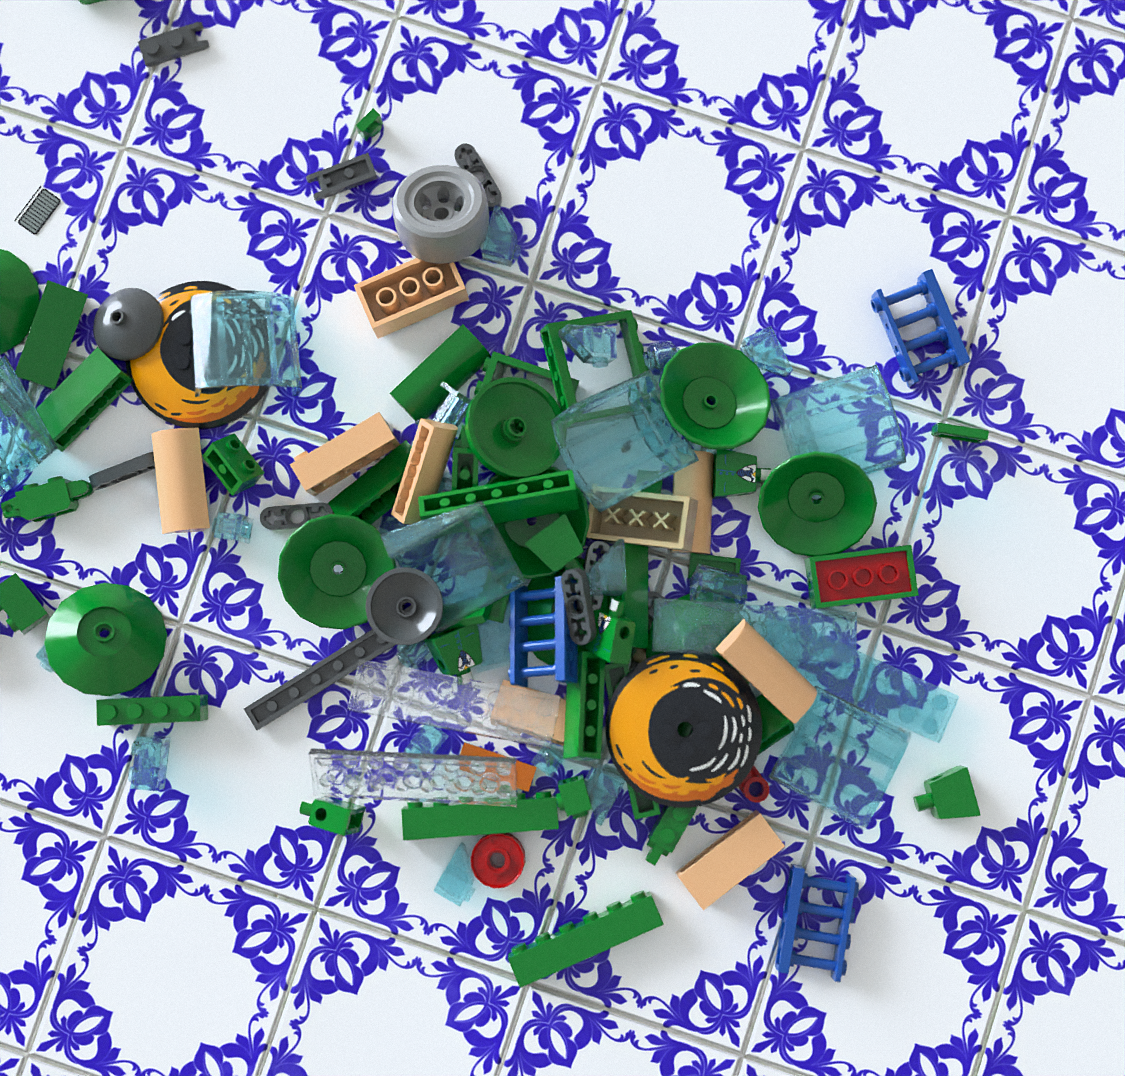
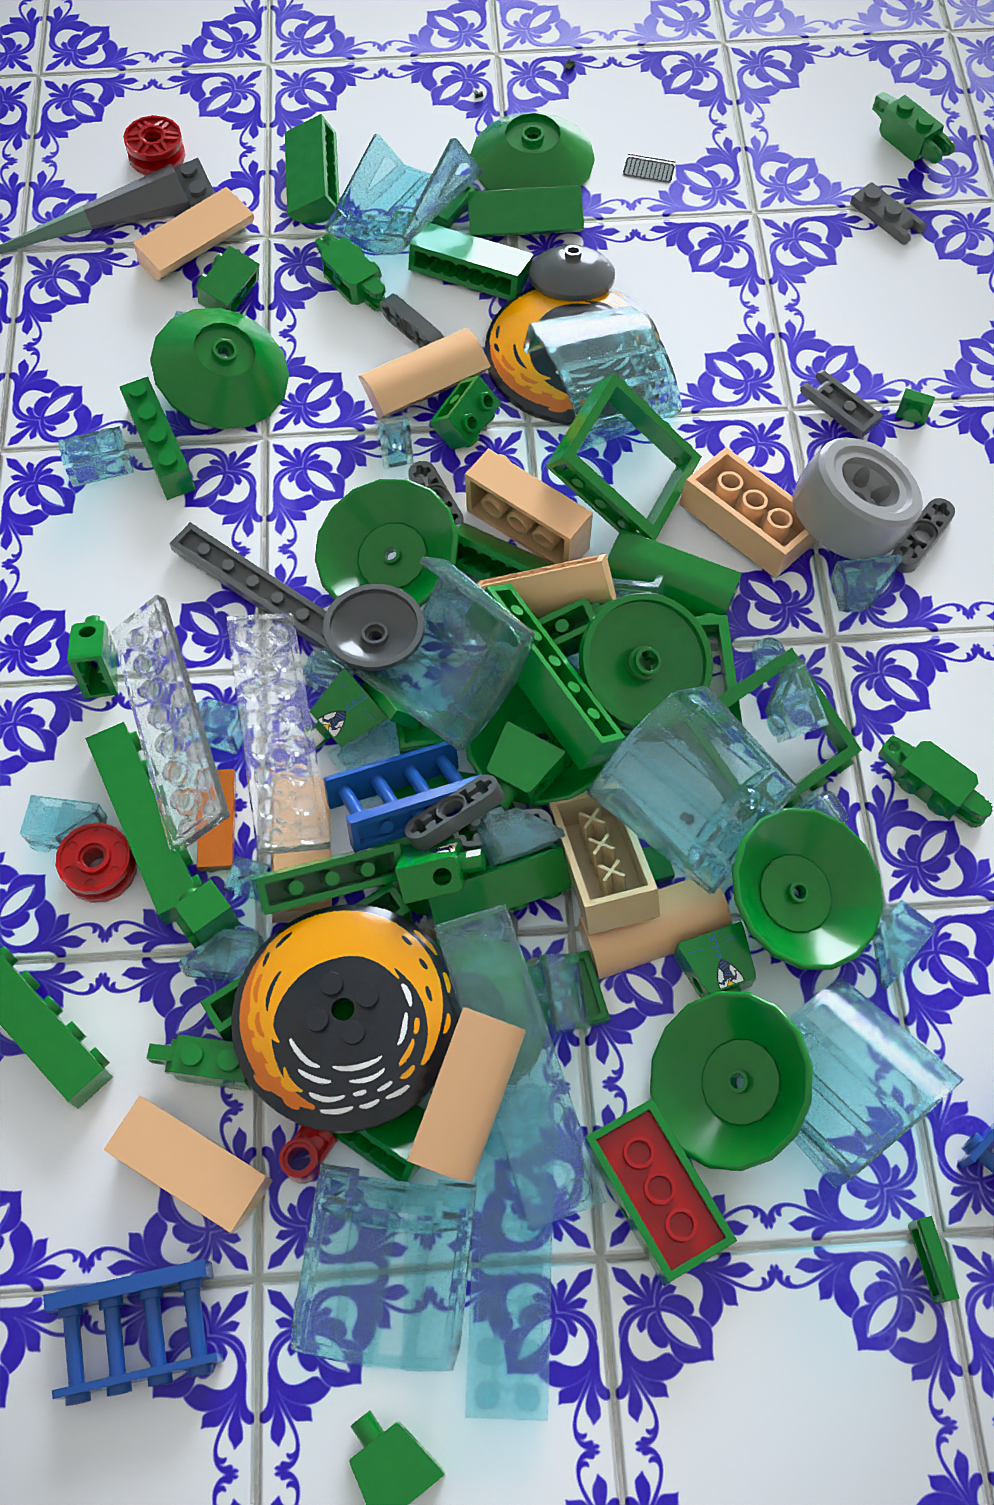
camera: 70 degrees right, 20 degrees down
(309, 391) = (595, 489): none -> green window
(527, 333) = (766, 650): none -> clear light blue plate
(668, 269) = (937, 780): none -> green hinge

